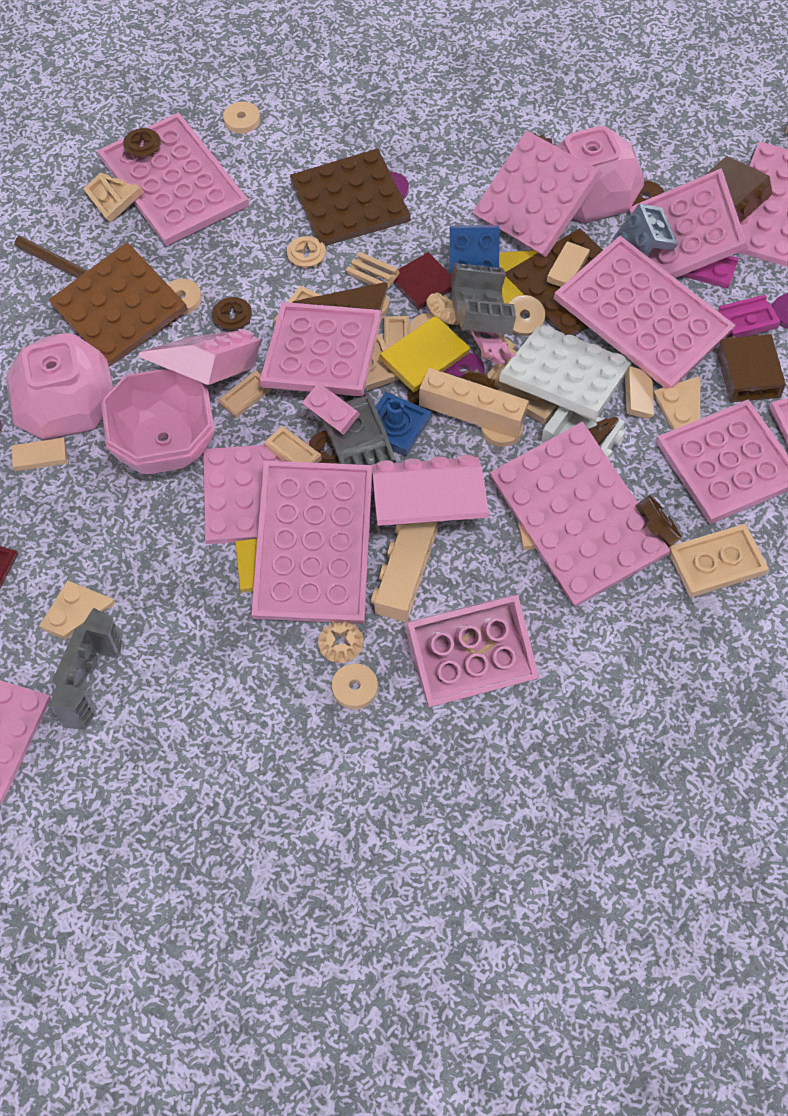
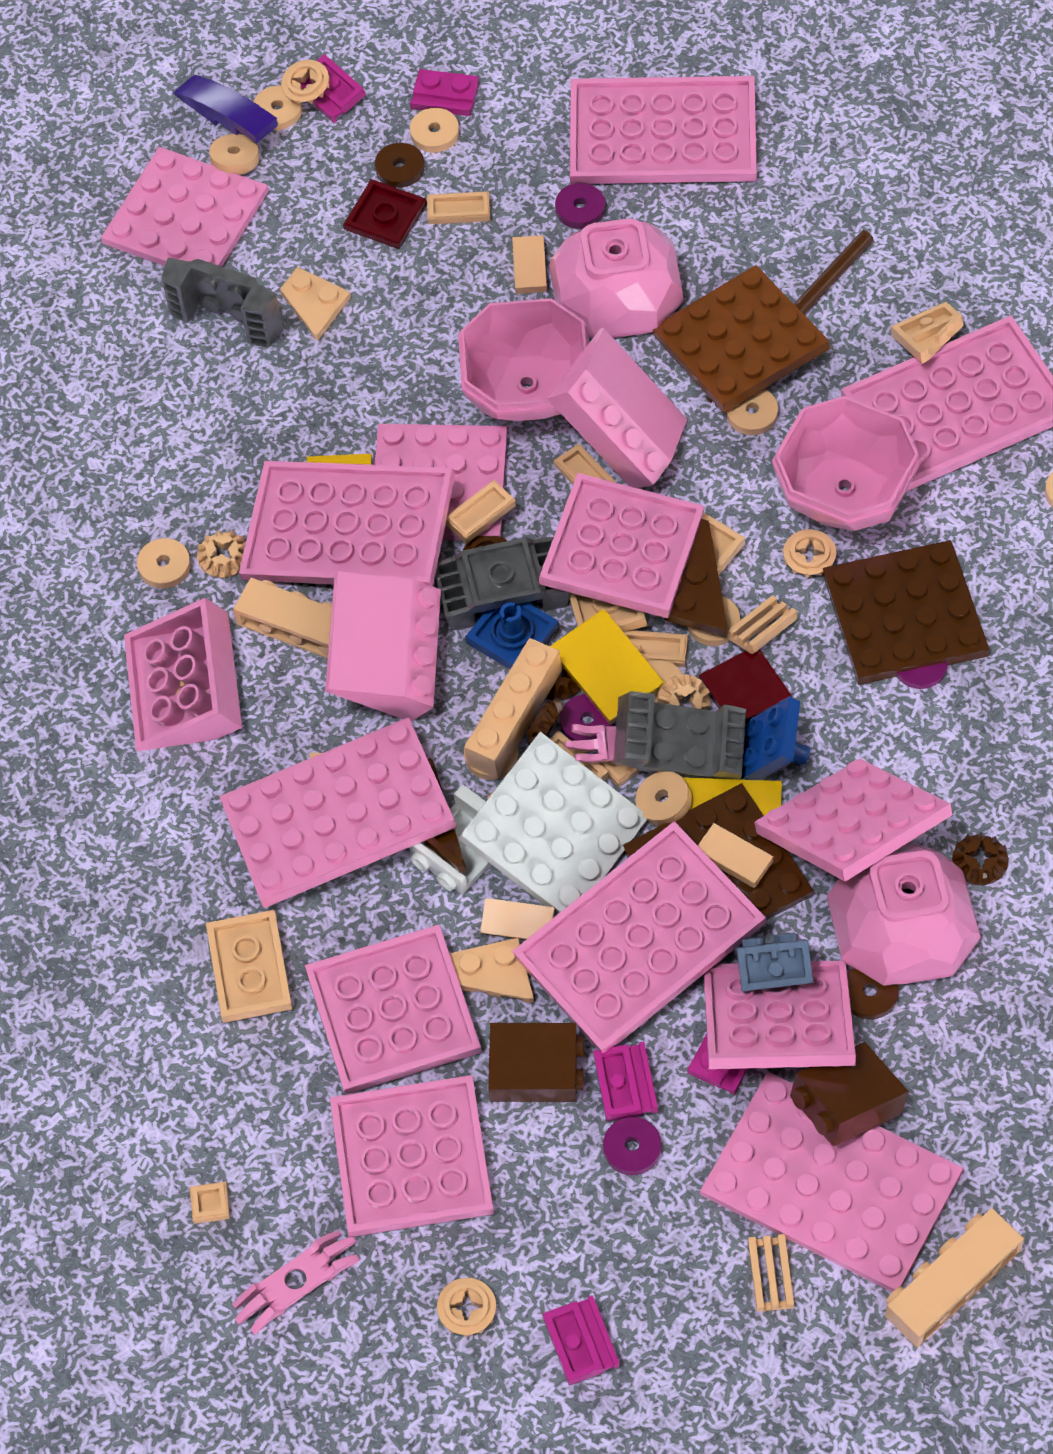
camera: 100 degrees right, 0 degrees up
(134, 139) = (1022, 355): reddish brown gear -> none
(222, 311) = (727, 459): reddish brown gear -> none
(246, 204) = (847, 447): none -> bright pink rock
(330, 408) = (517, 542): bright pink plate -> none
(658, 521) = (301, 879): reddish brown plate -> none

